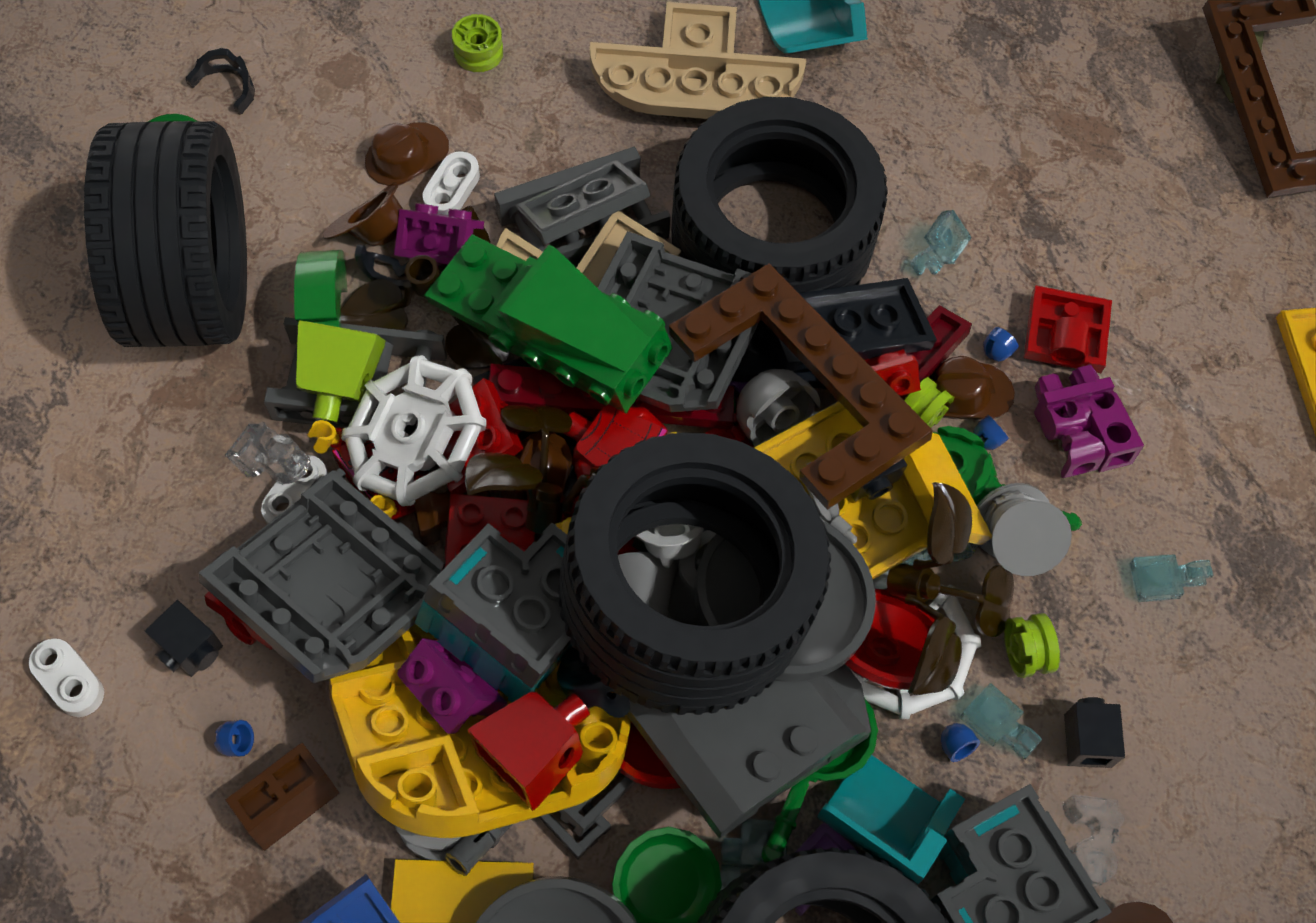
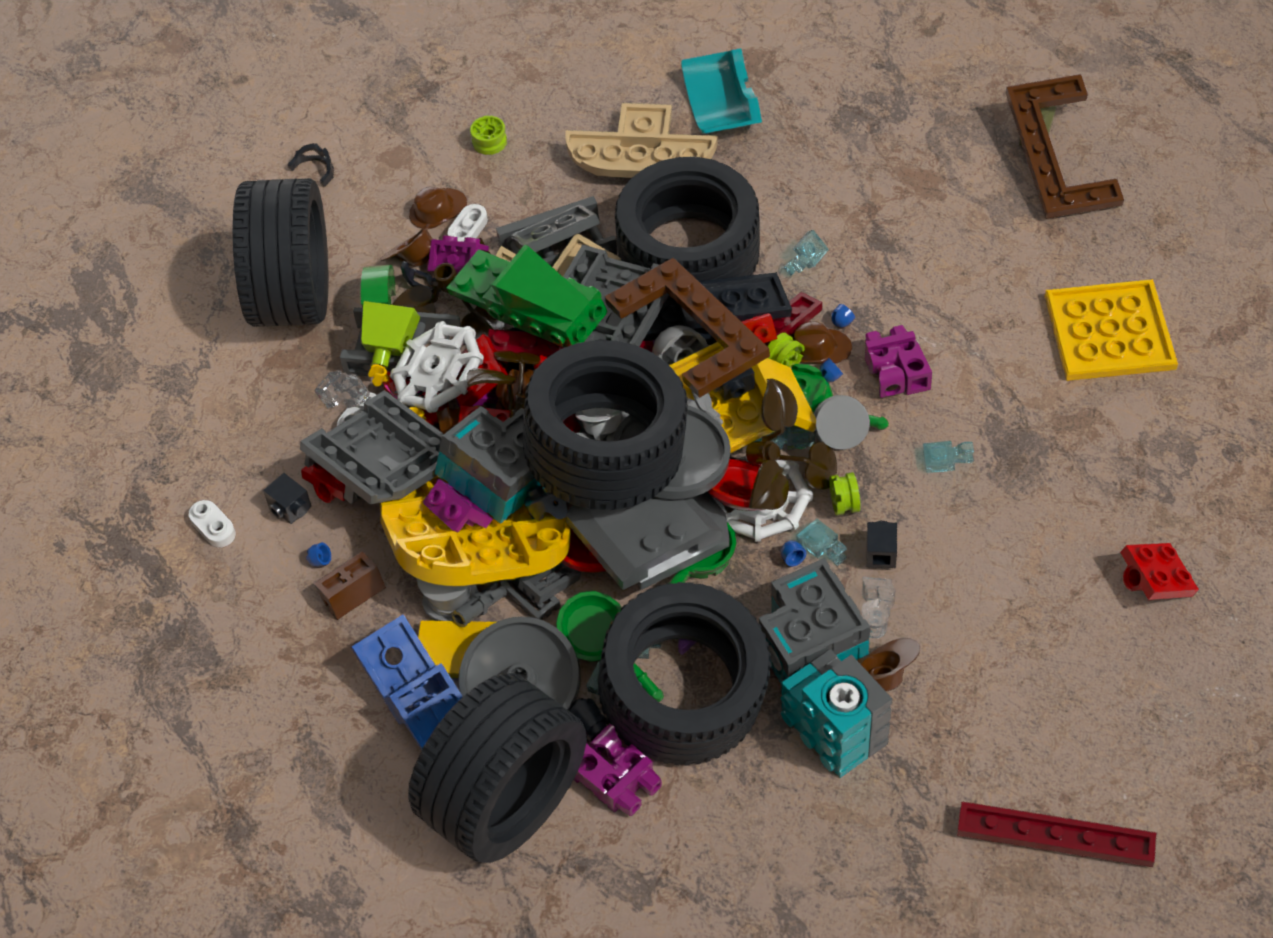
camera: 10 degrees right, 10 degrees down
(531, 744) = (504, 532): red torso -> none
(891, 818) = (736, 581): teal panel -> none
(1068, 328) = (890, 304): red plate -> none

